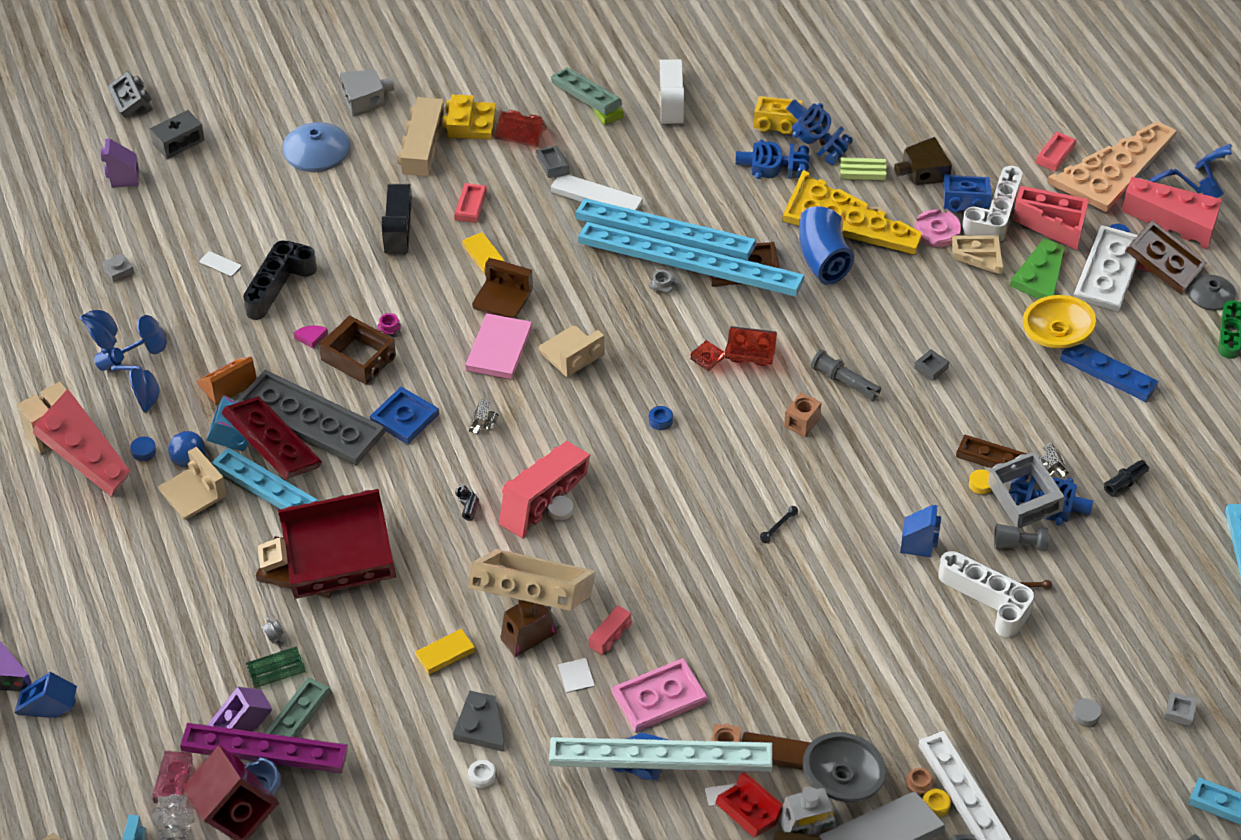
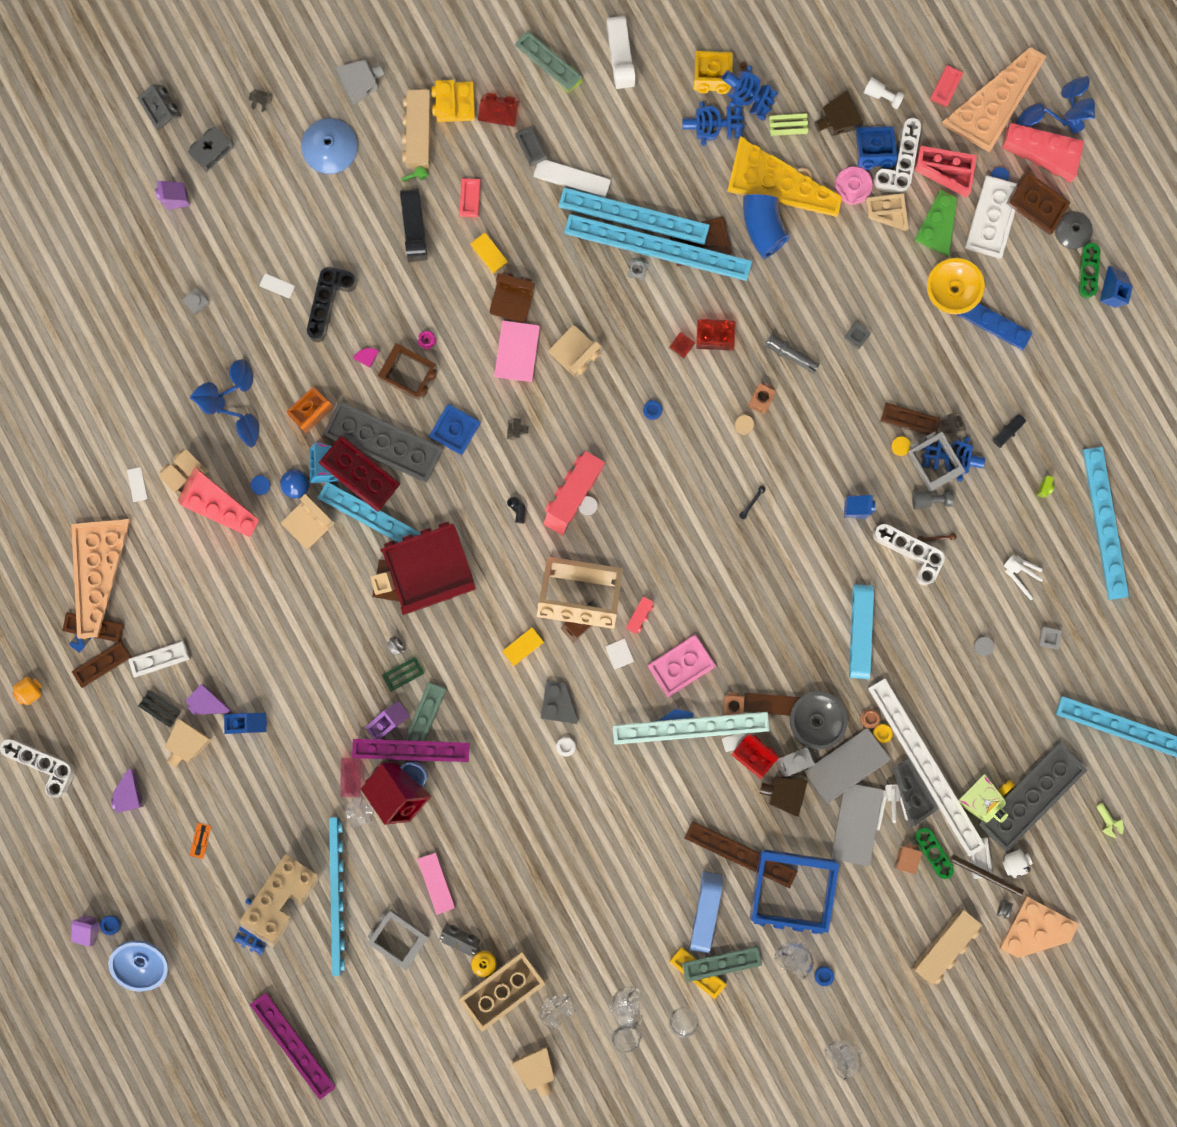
camera: 10 degrees left, 35 degrees up
(247, 96) = (261, 97): none -> clear smoke tile
(415, 174) = (420, 172): none -> bright green hand
(777, 442) = (744, 424): none -> tan tile
(914, 676) = (861, 631): none -> medium azure beam
(972, 145) = (877, 89): none -> white piece
(1133, 621) = (1015, 564): none -> white plant
(1175, 538) = (1046, 486): none -> lime plate

